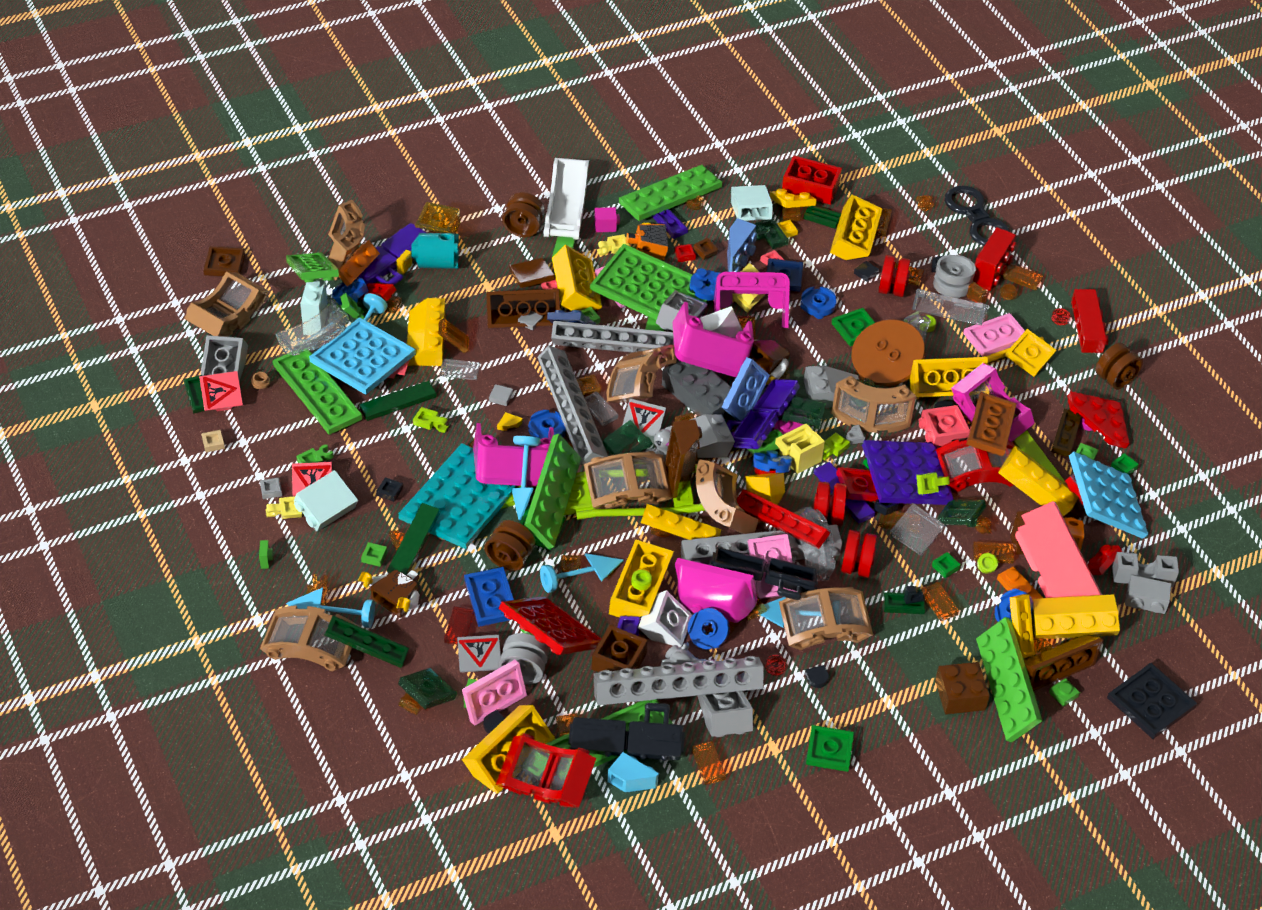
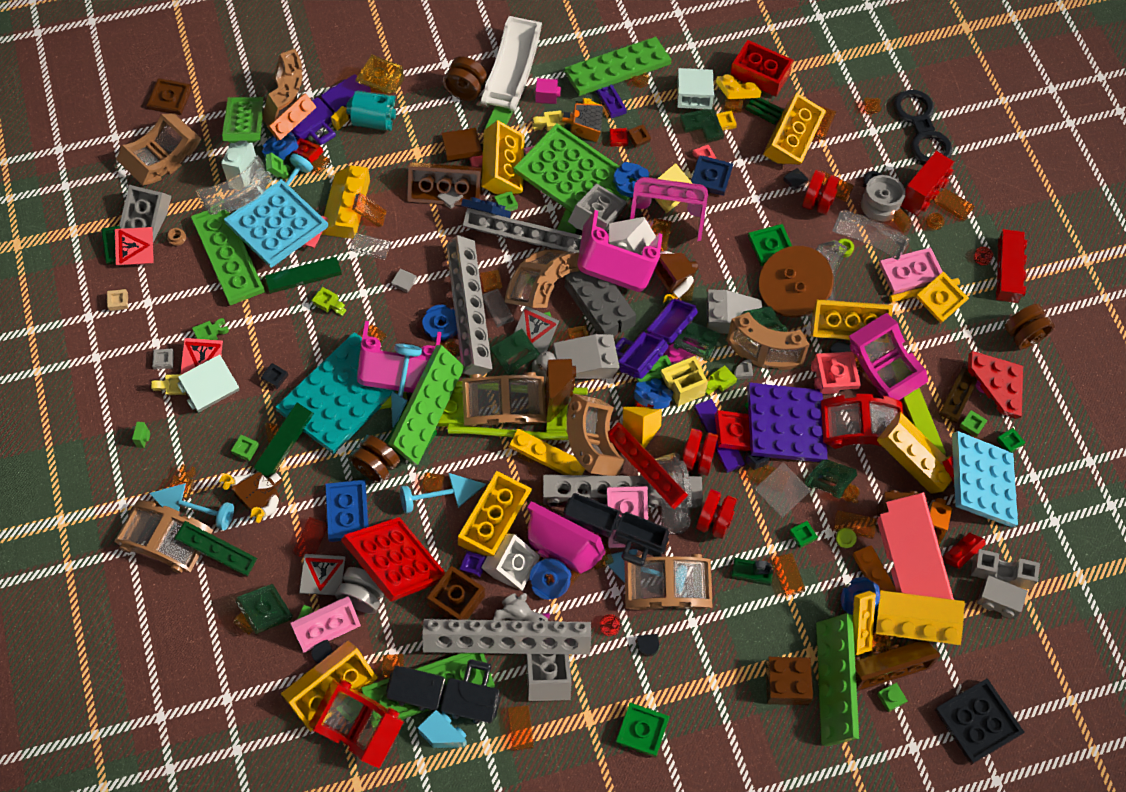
camera: 10 degrees right, 15 degrees up
(509, 421) = (405, 312): yellow tile -> none
(641, 579) = (492, 519): lime tile -> none
(740, 244) = (673, 138): medium blue slope -> none
(745, 389) = (640, 312): medium blue plate -> none
(817, 309) = (737, 219): blue plate -> none
(929, 482) = (805, 441): lime plate -> none
(991, 424) = (881, 384): dark orange plate -> none

